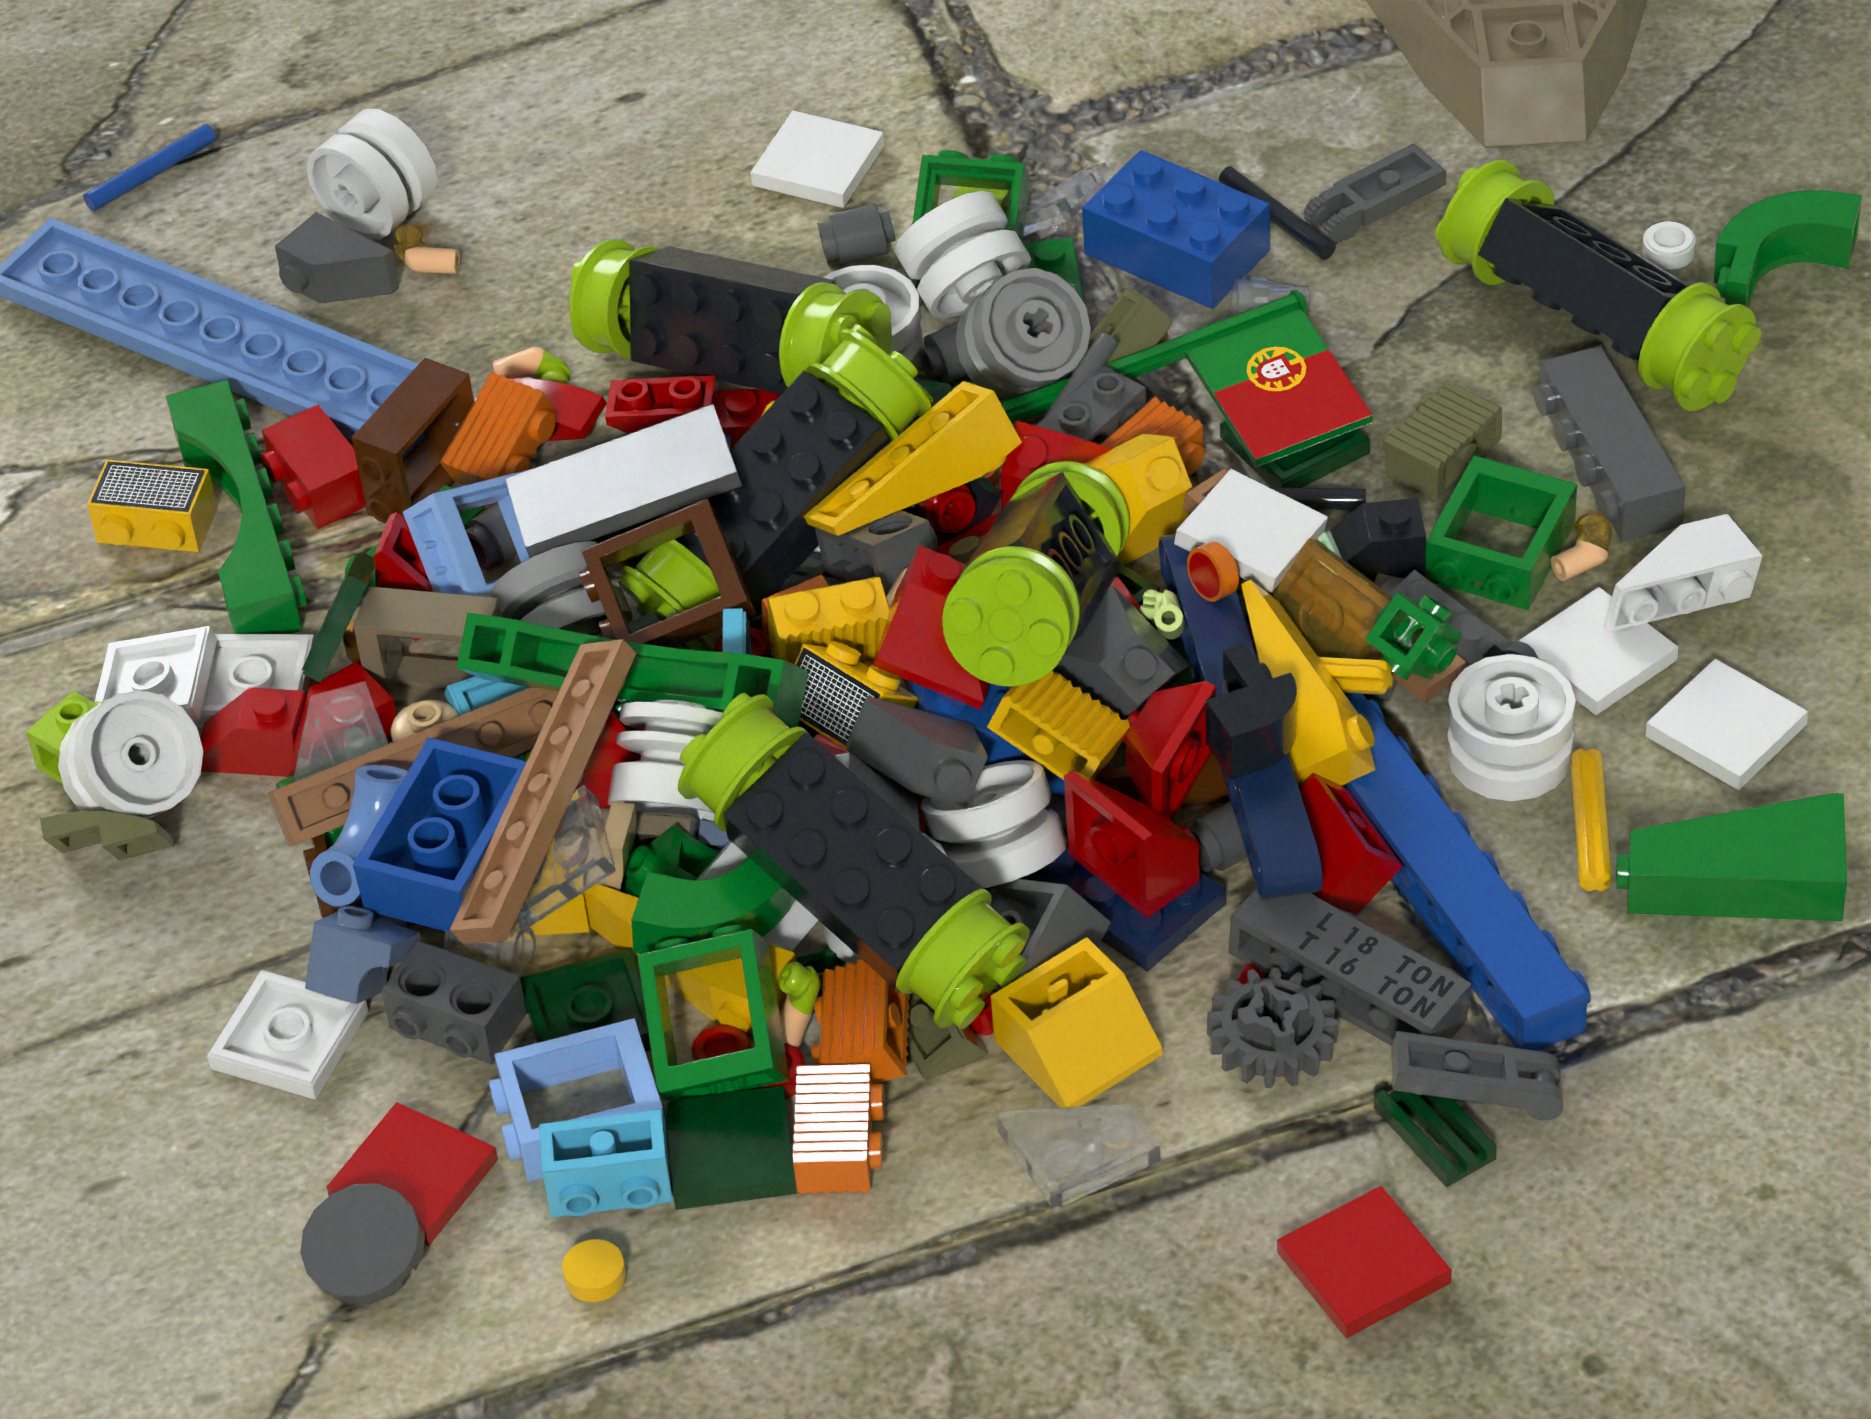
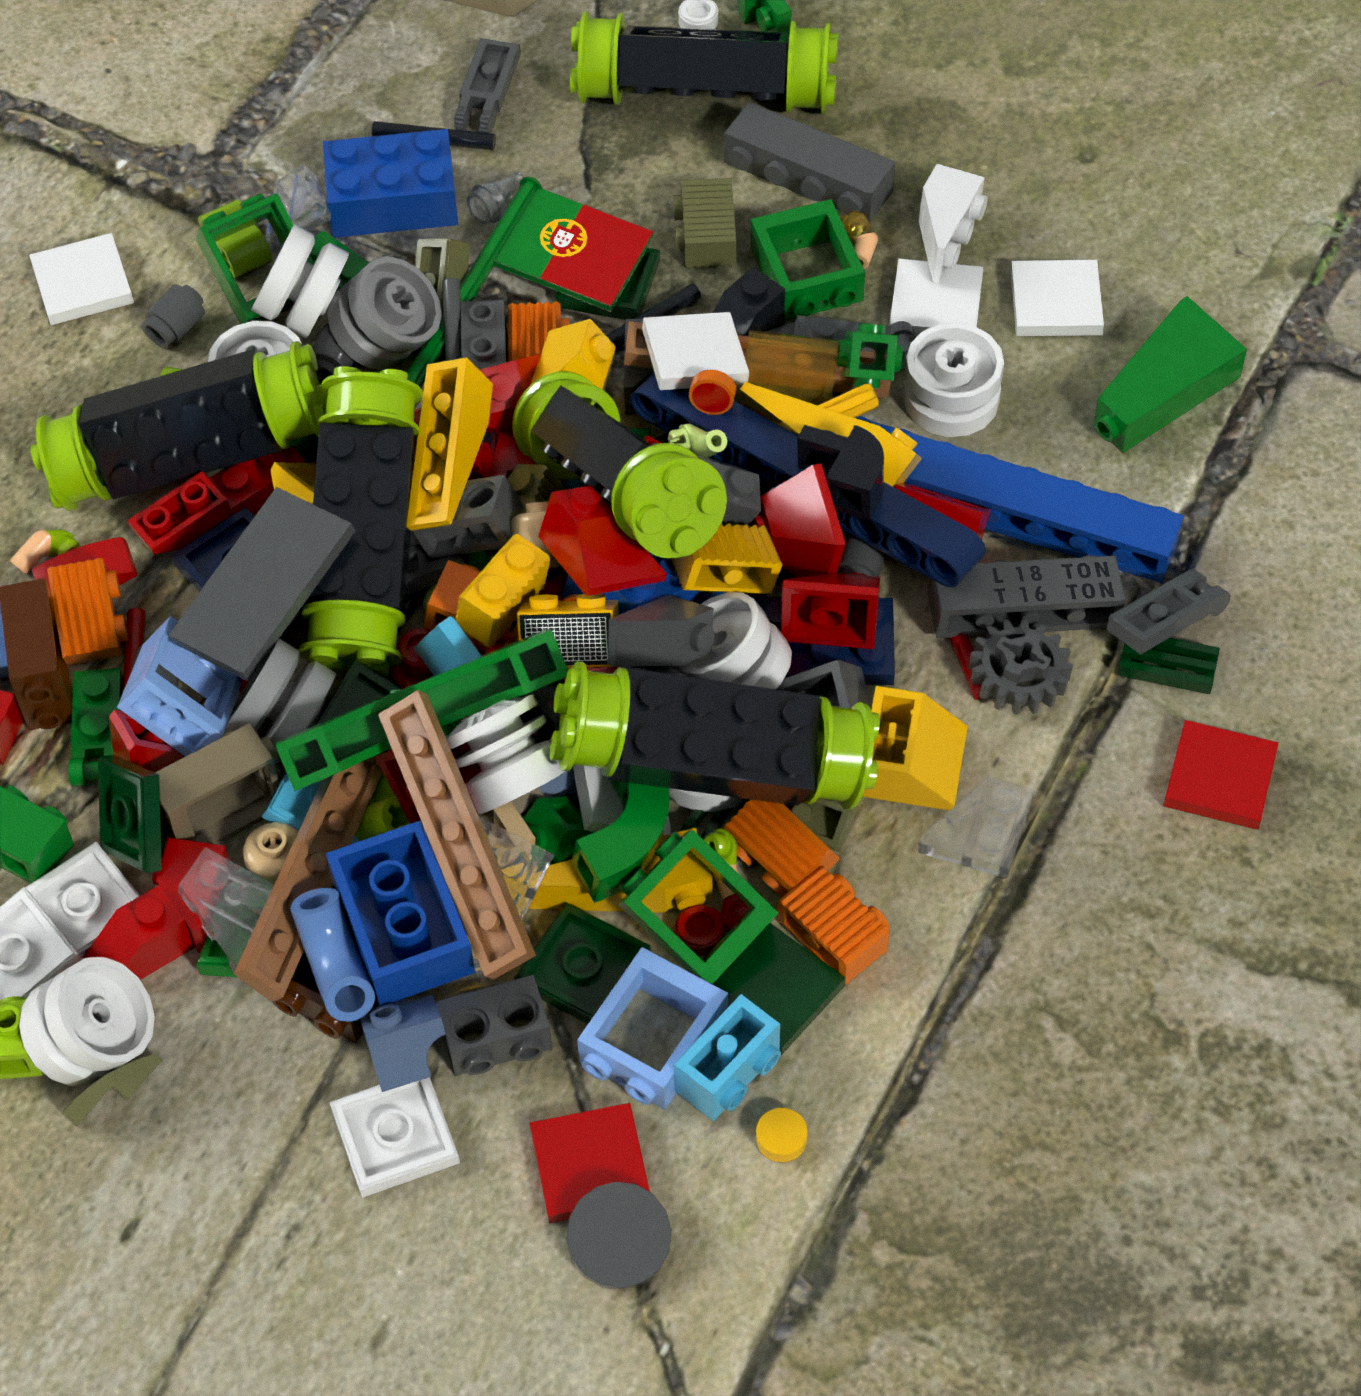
camera: 45 degrees left, 10 degrees up
(685, 625) = (395, 592): reddish brown window -> none
(1590, 820) = (1049, 409): yellow axle -> none

